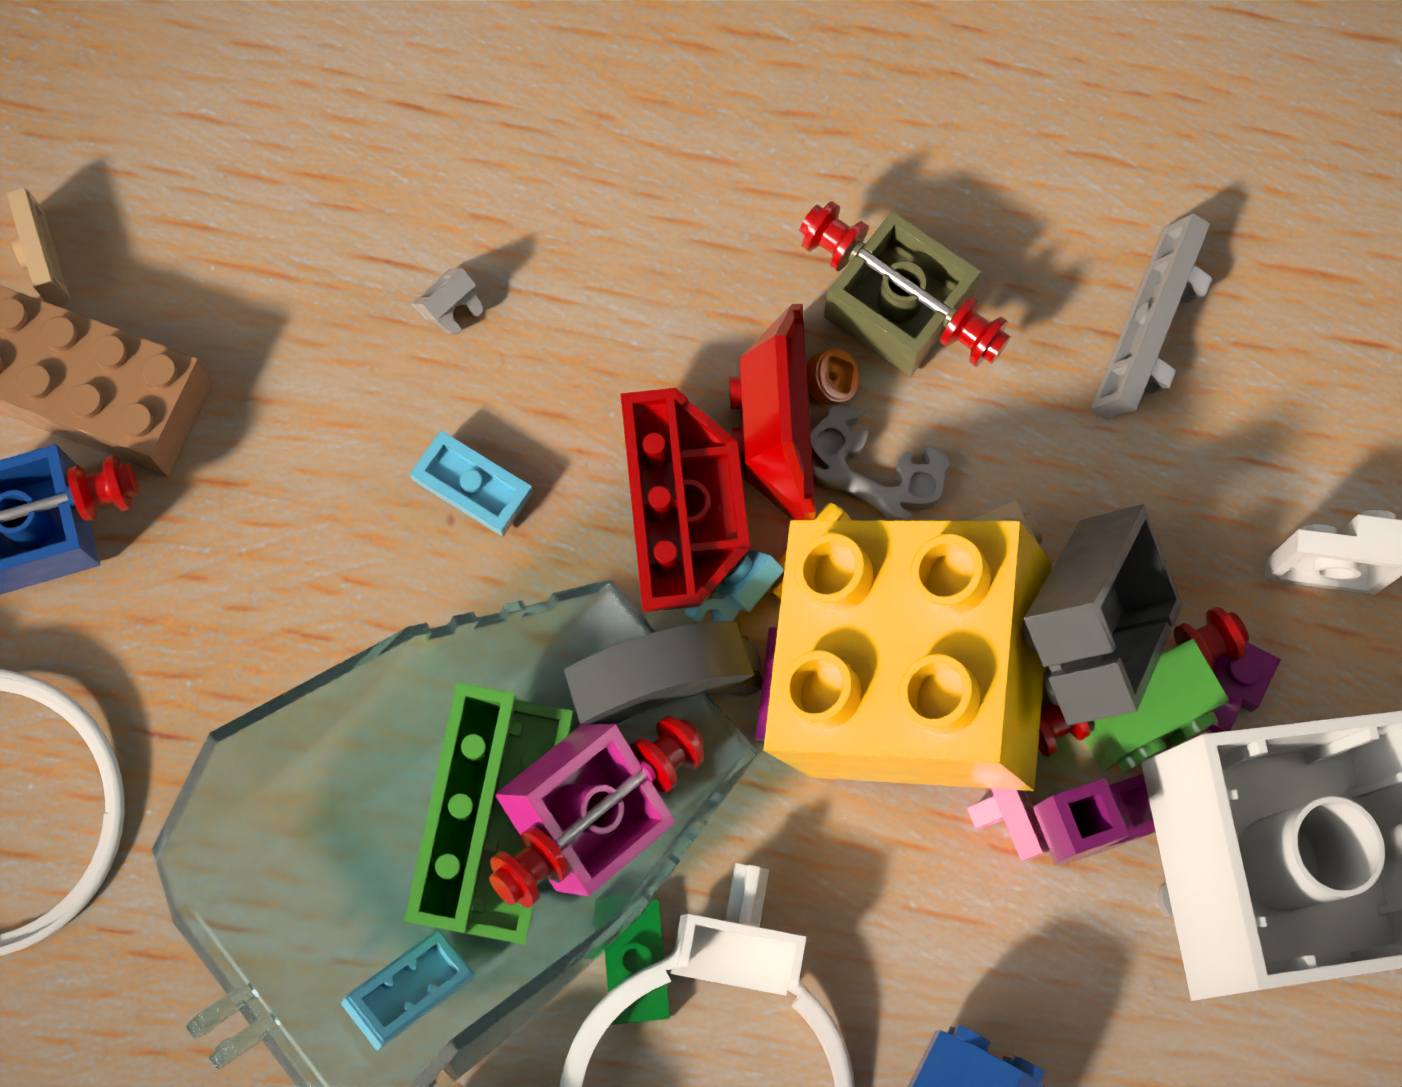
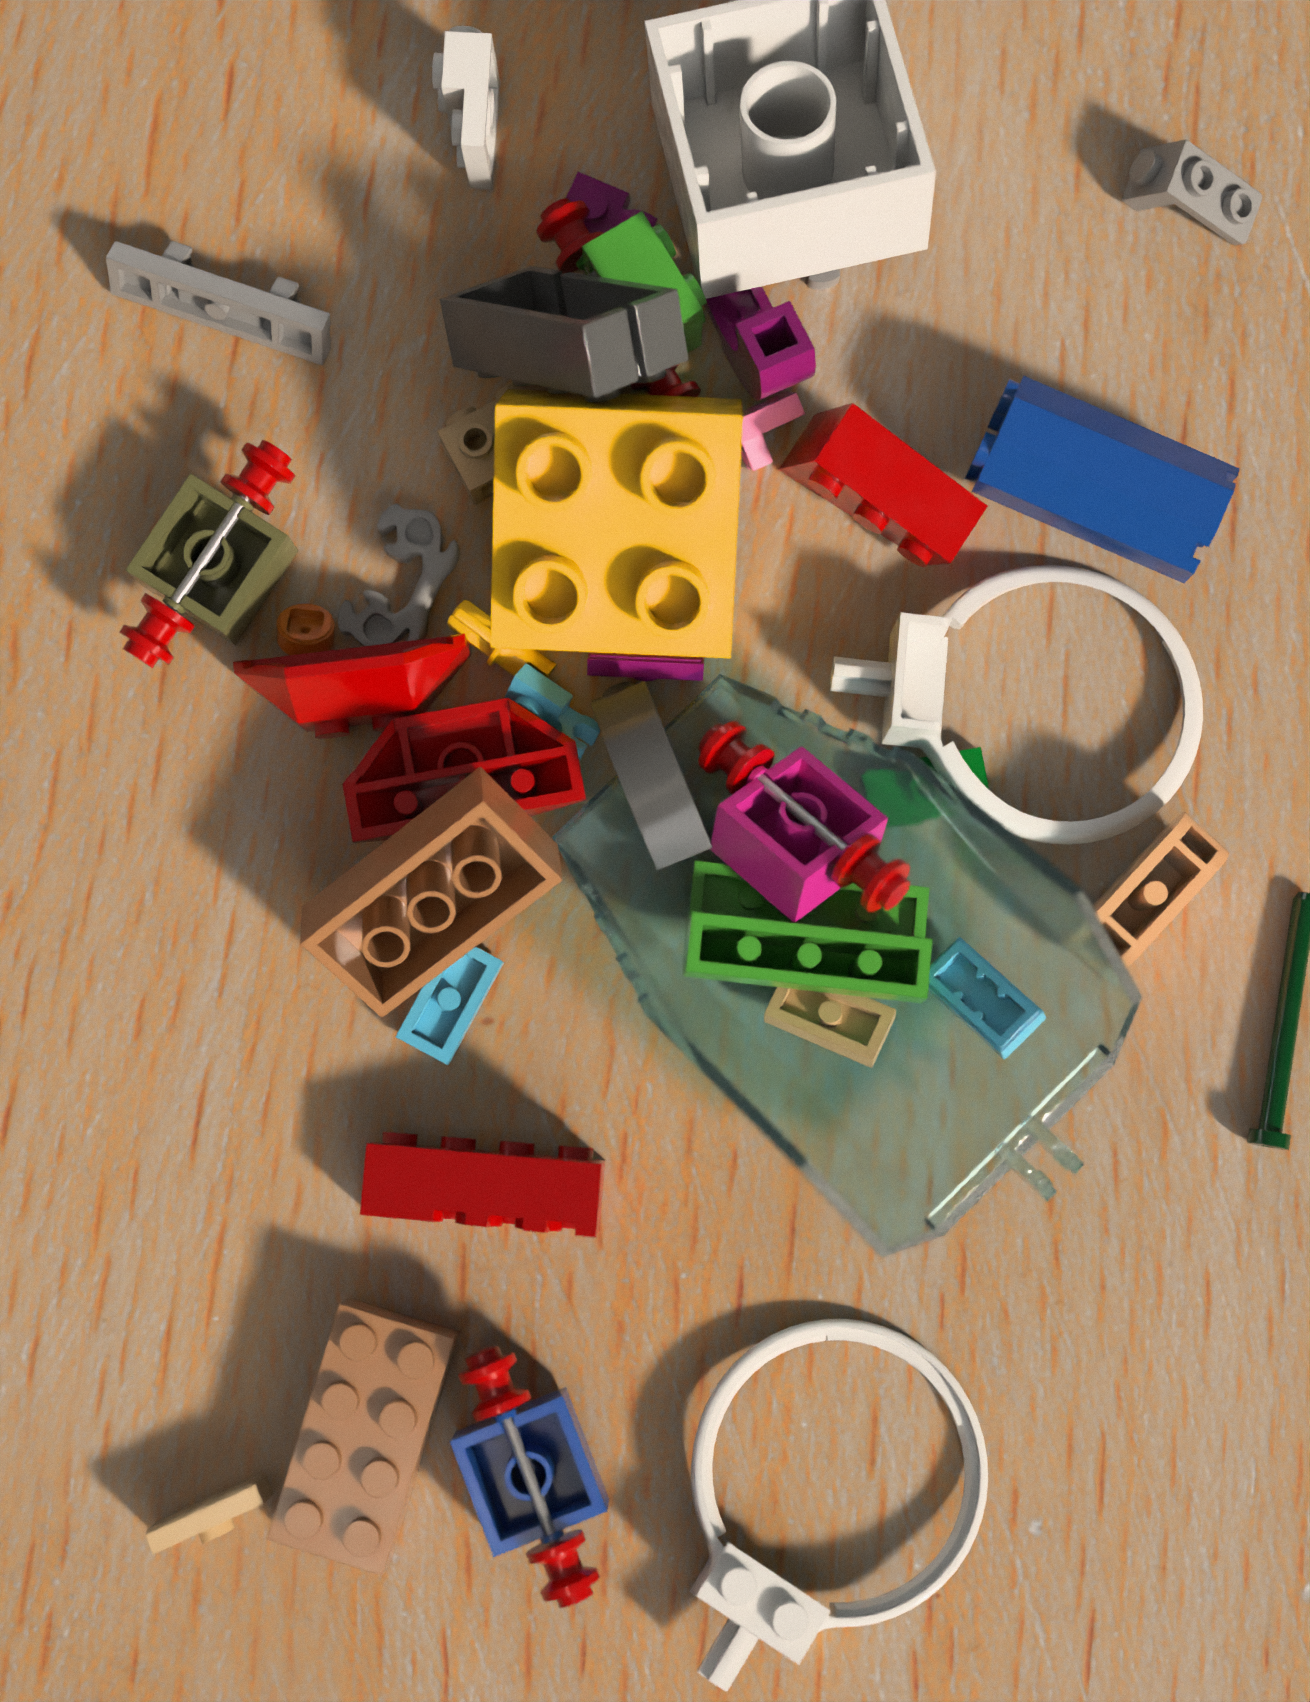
camera: 90 degrees left, 10 degrees up
(290, 503) = (483, 1185): none -> red wedge
(395, 850) = (834, 1021): none -> tan plate
(444, 295) = (240, 1050): light grey tile -> none
(564, 460) = (430, 893): none -> medium nougat brick
(941, 939) = (883, 484): none -> red wedge

